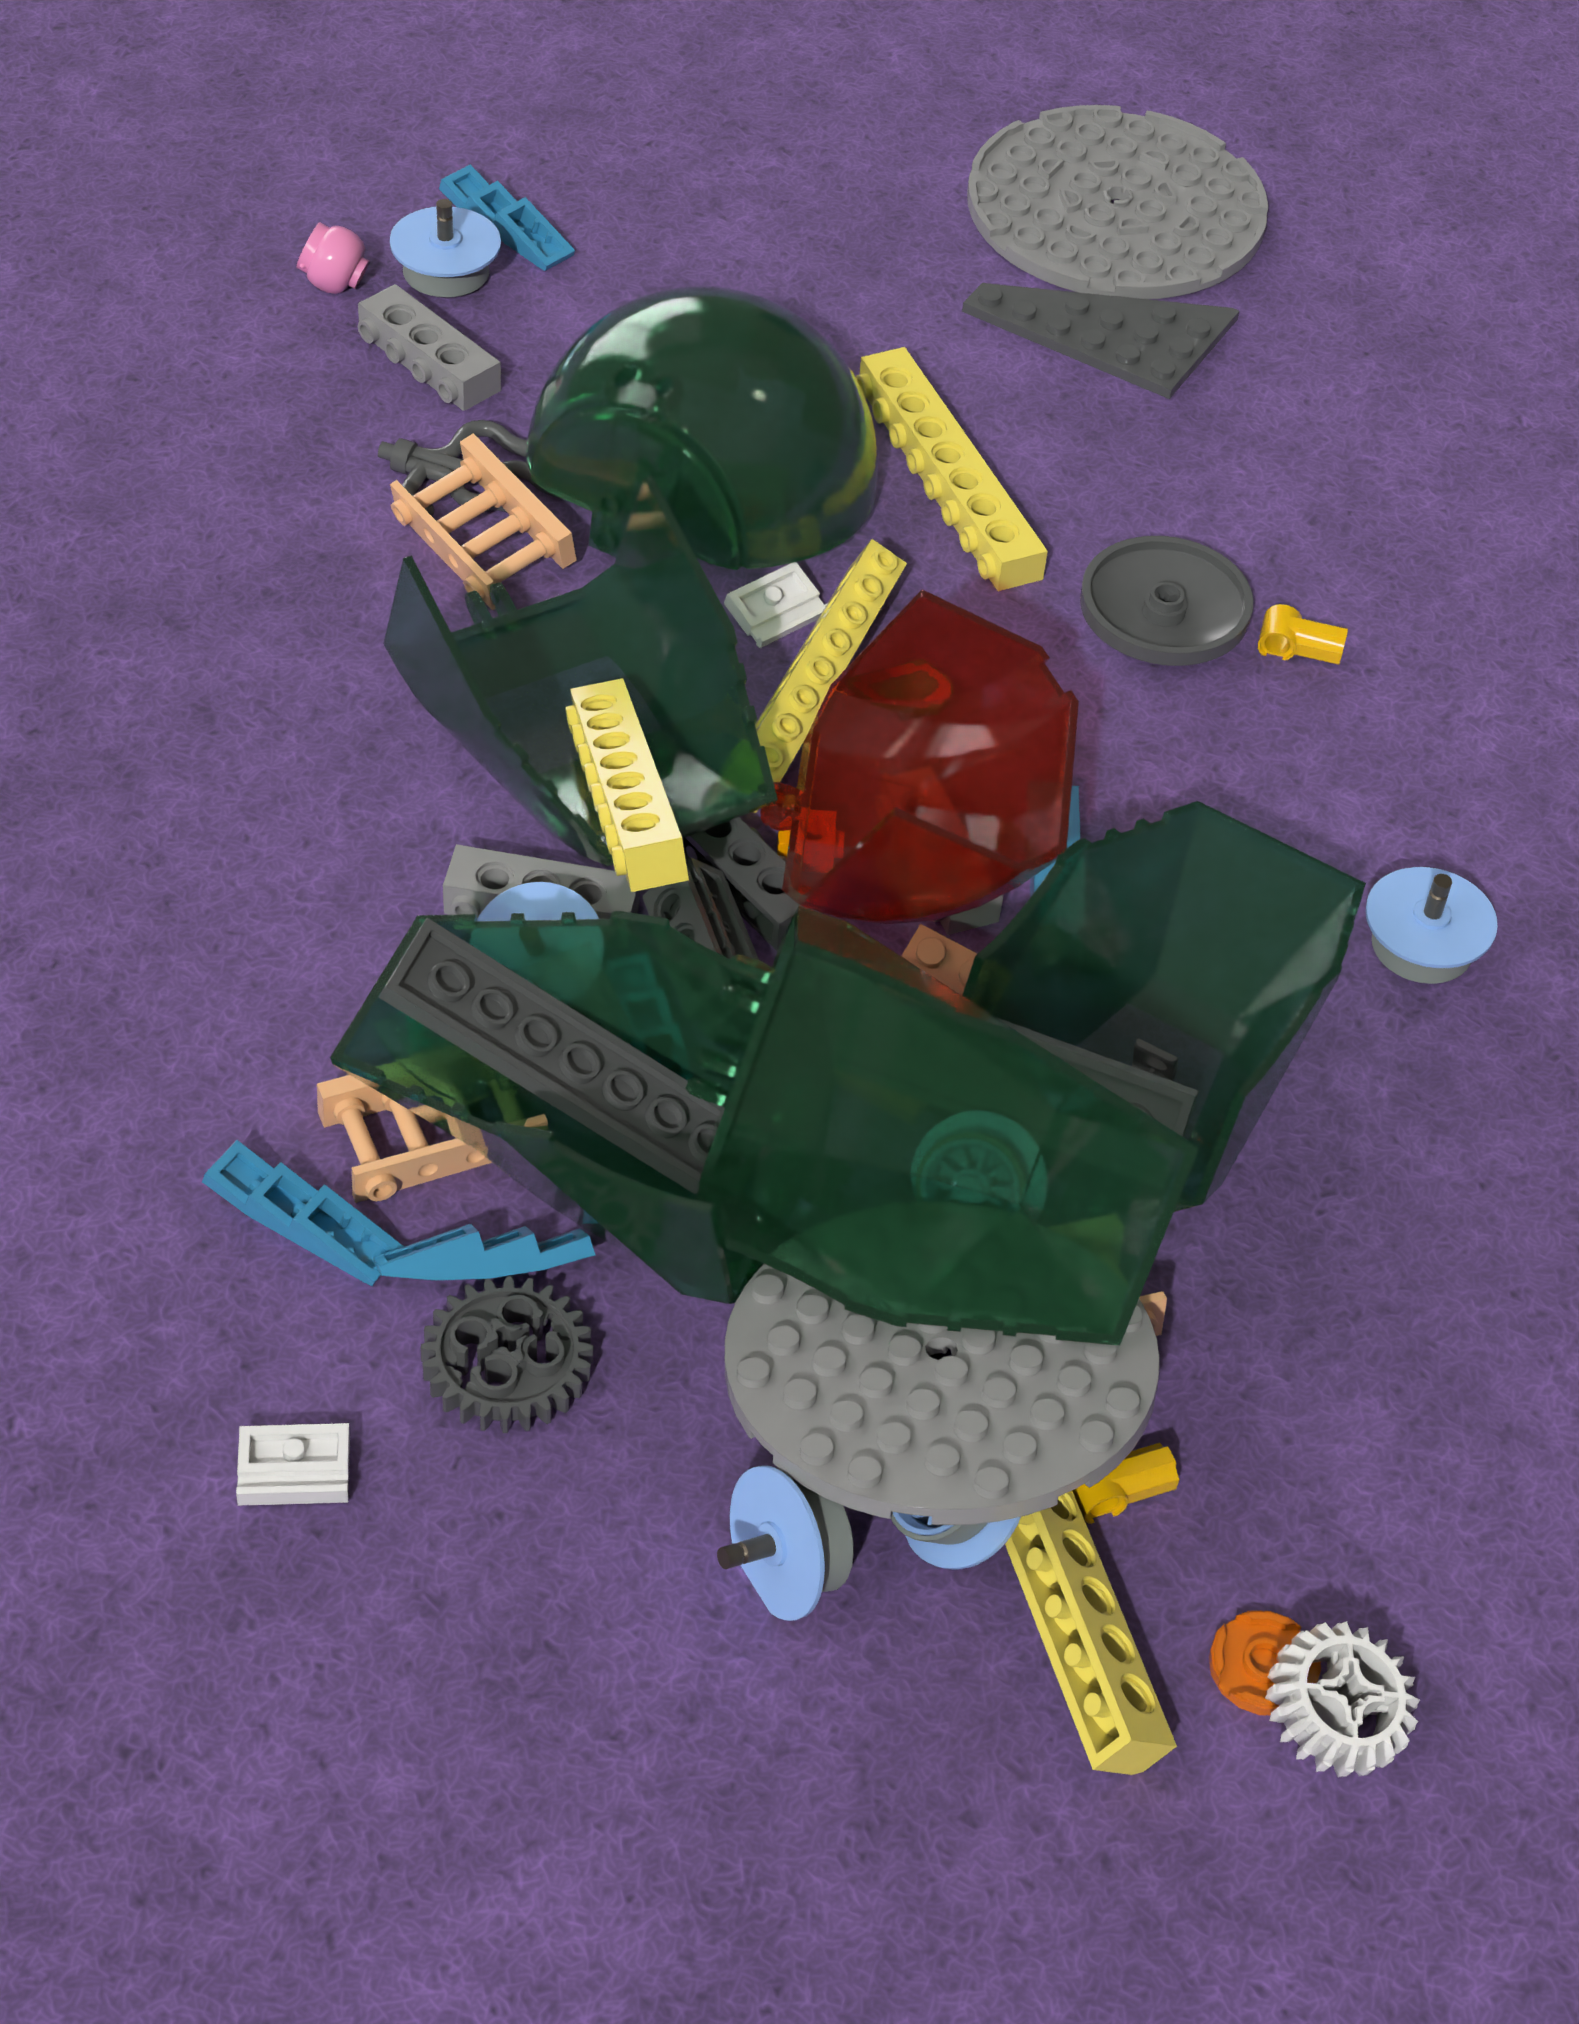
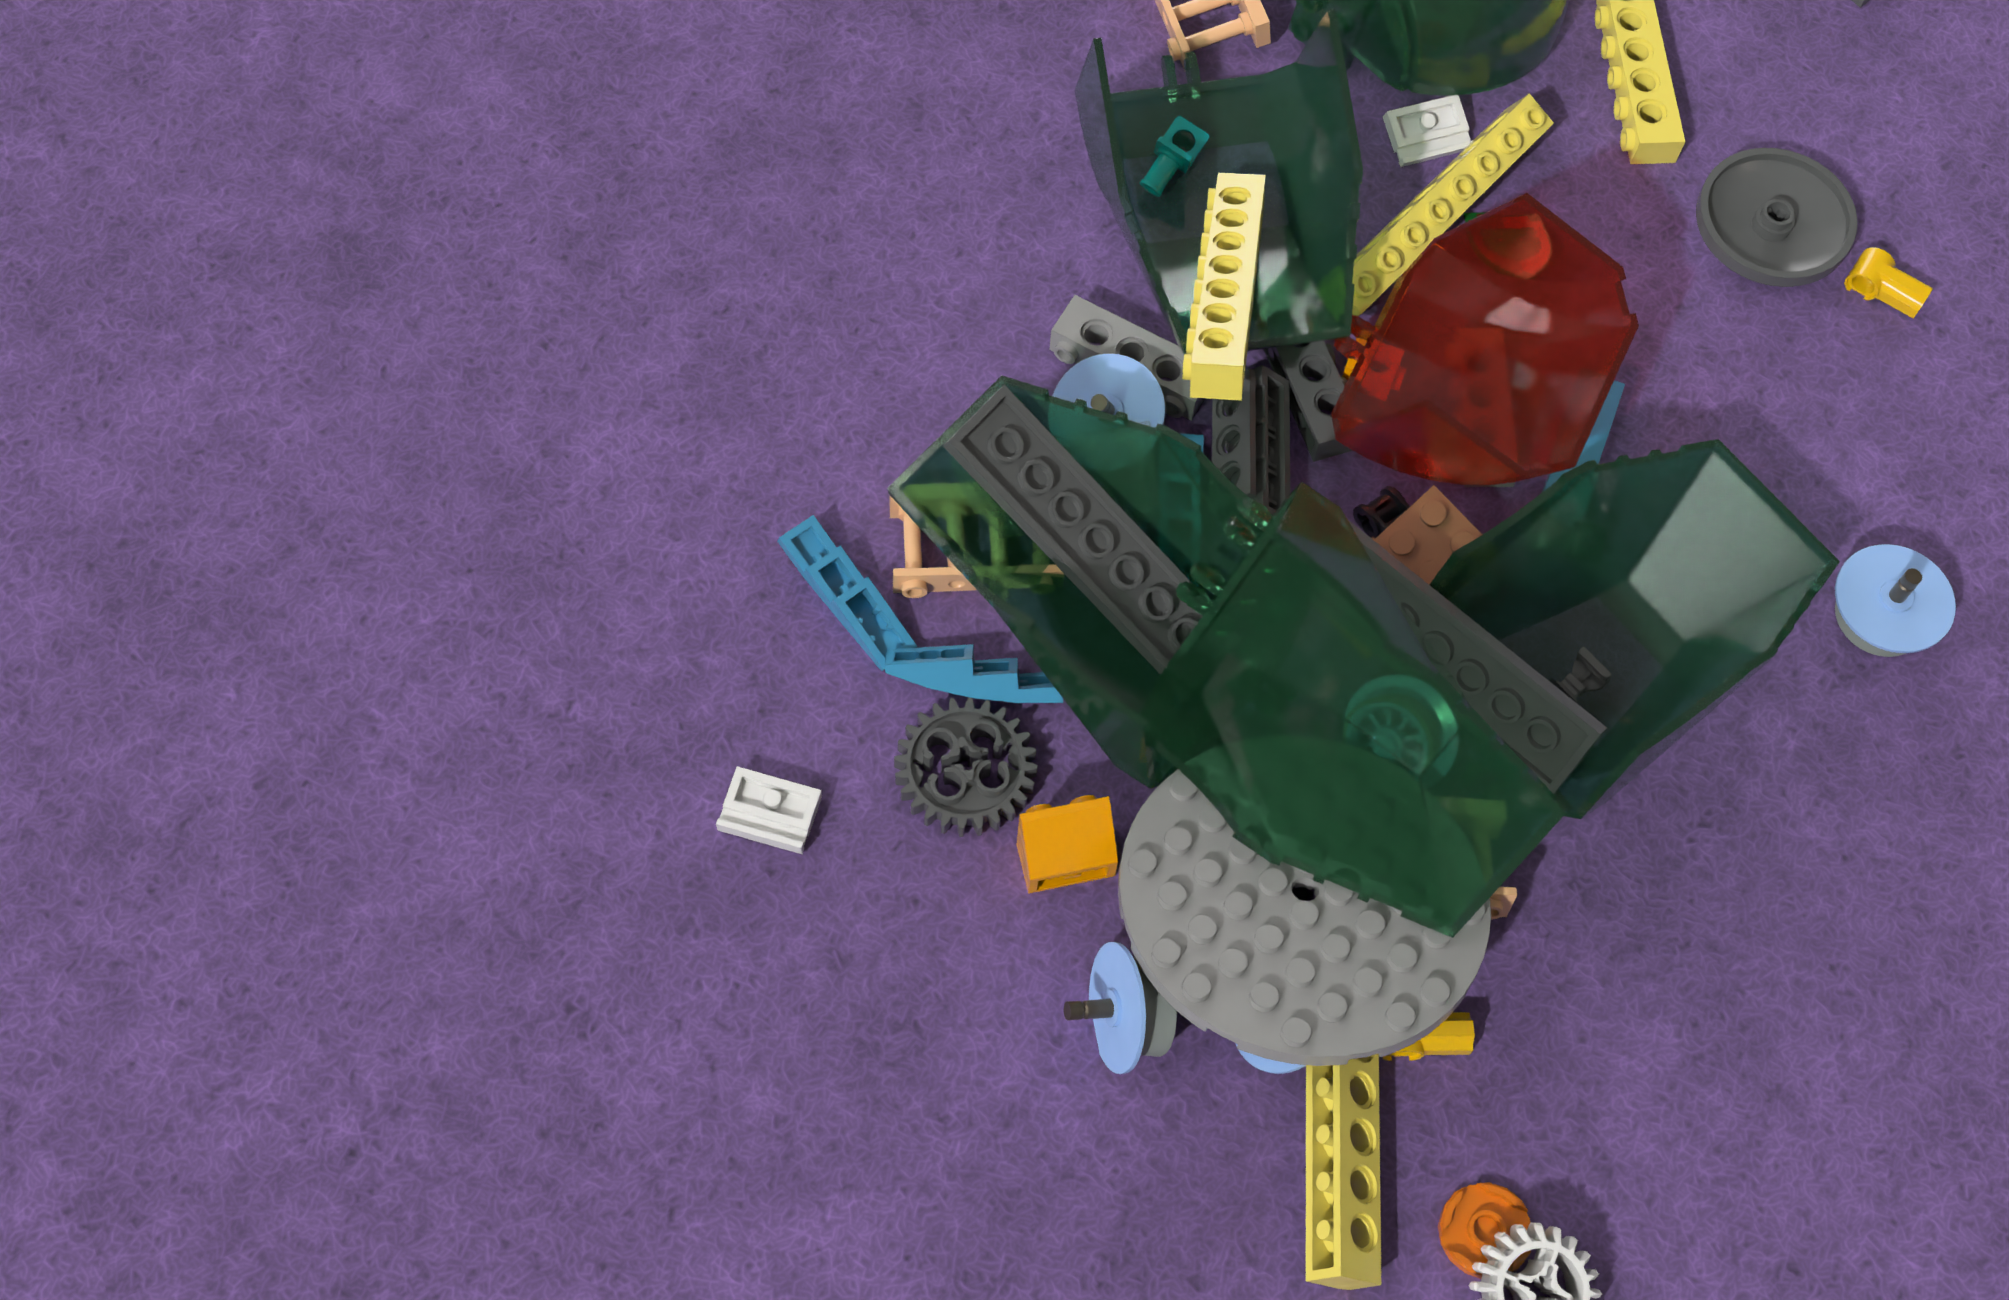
camera: 20 degrees right, 15 degrees up
(513, 686) = (1172, 157): none -> teal bracket
(654, 1395) = (1067, 843): none -> light orange slope

